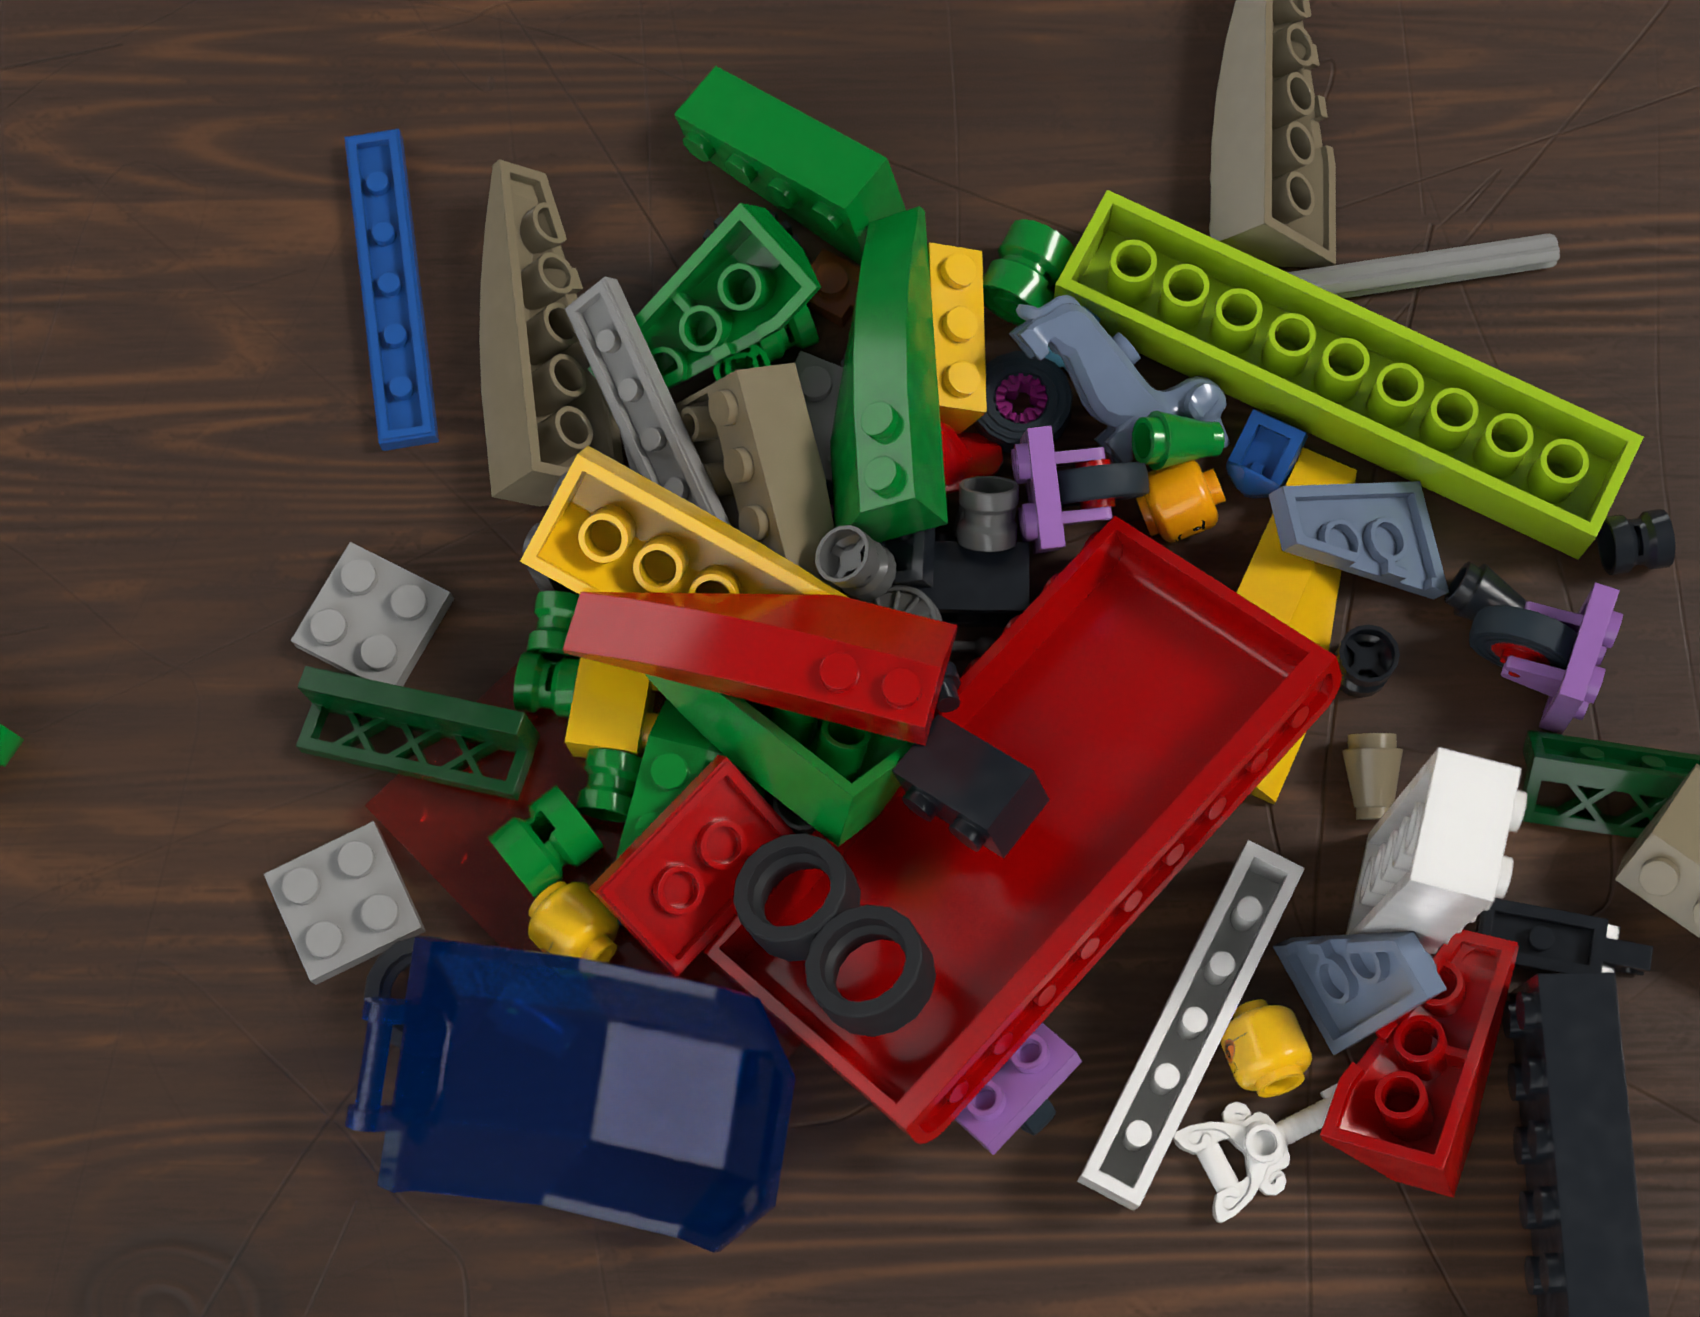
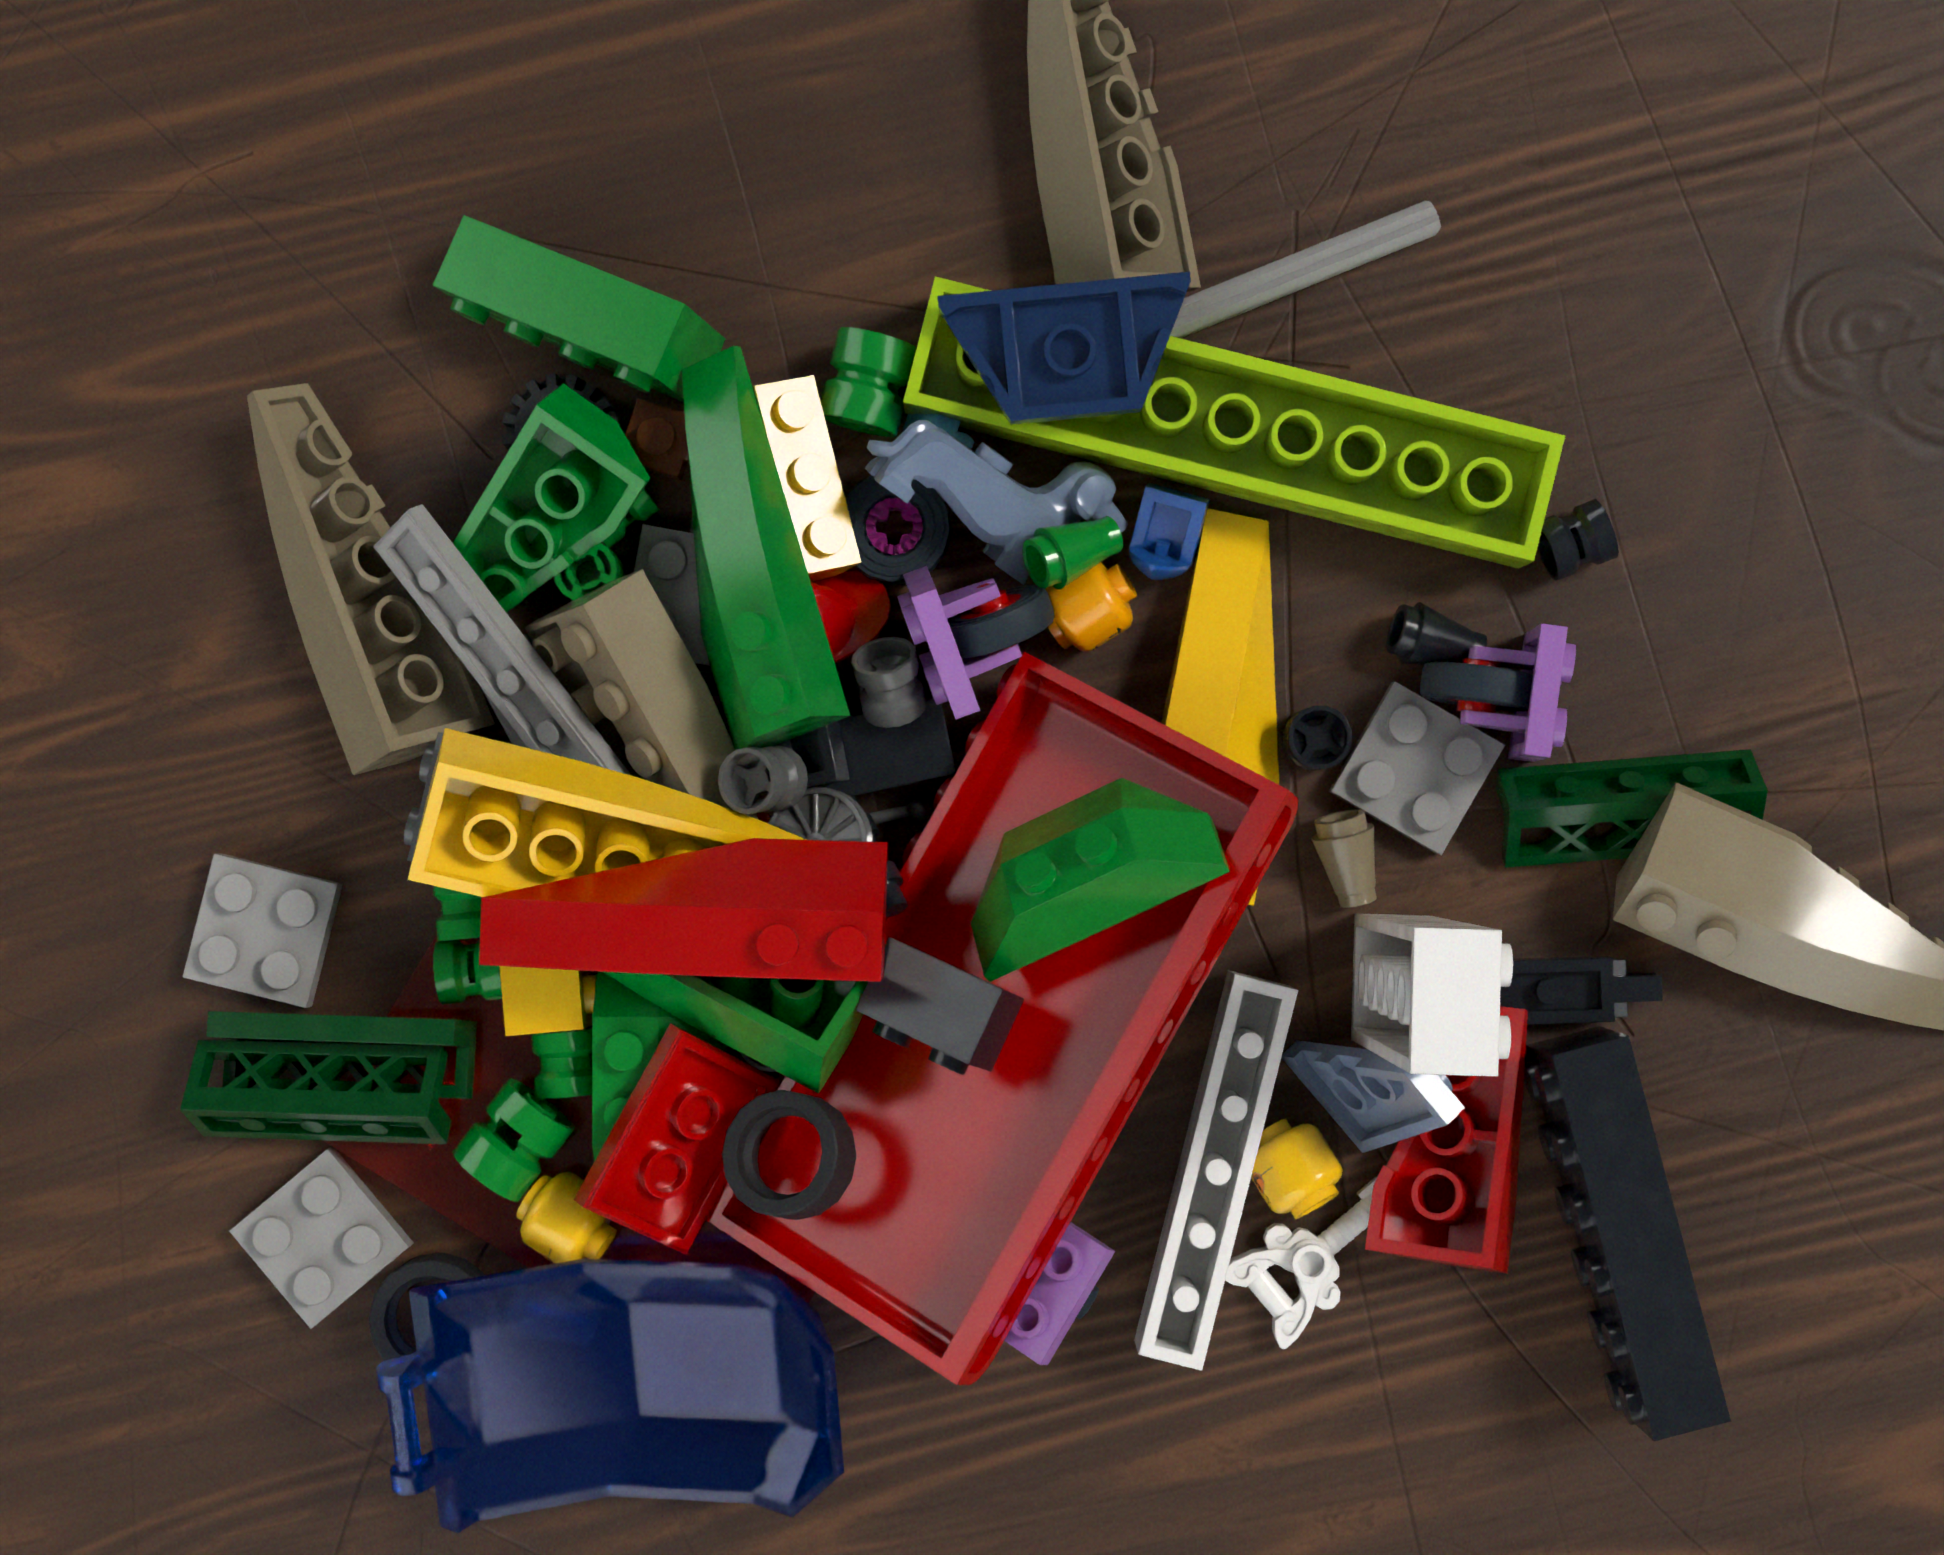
camera: 15 degrees left, 15 degrees up
(371, 772) = (322, 1113): none -> dark green fence
(391, 290) = (172, 548): blue tile -> none
(845, 935) = (834, 1217): black tyre -> none
(1135, 698) = (1088, 871): none -> green wedge
(1212, 261) = (1068, 344): none -> dark blue wing
(1363, 530) = (1289, 601): sand blue wing -> none
(1451, 704) = (1416, 768): none -> light grey plate

